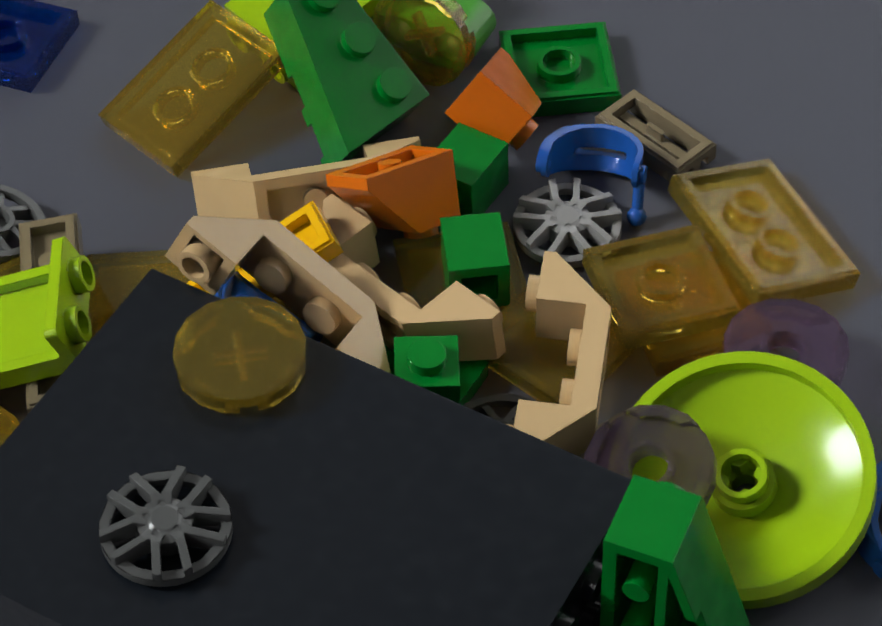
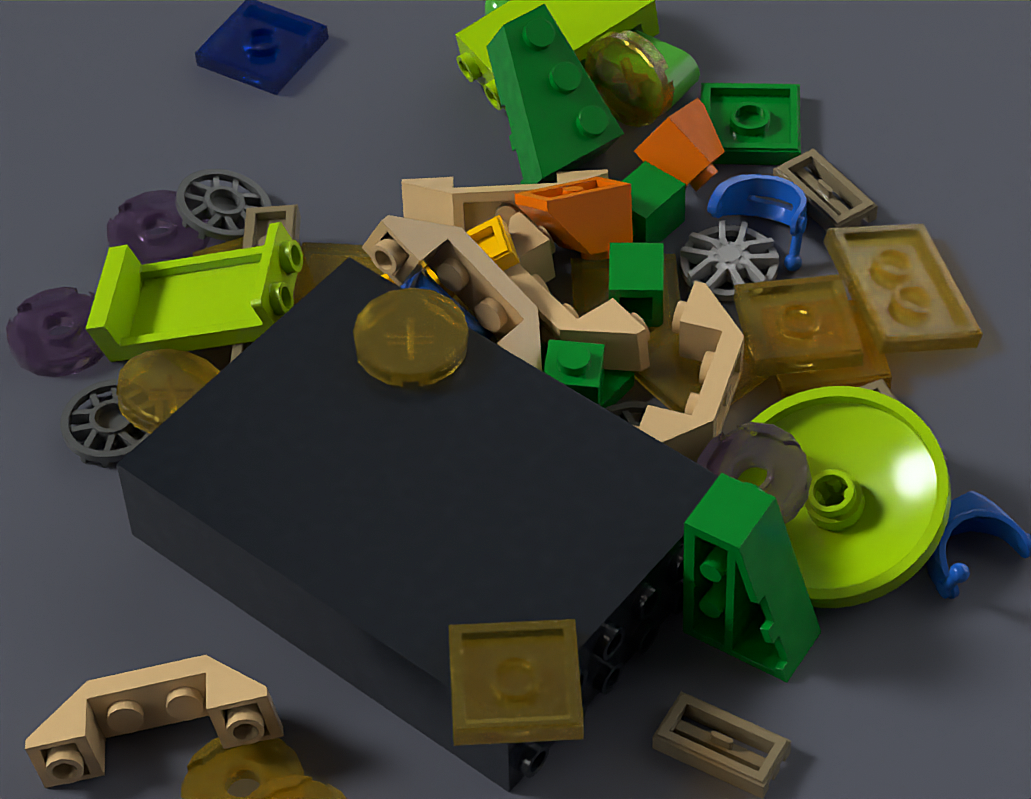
camera: 10 degrees right, 0 degrees up
(165, 526) = (325, 470): dark grey wheel -> none
(193, 88) = (417, 105): clear yellow tile -> none
(792, 325) = (909, 372): clear purple tile -> none

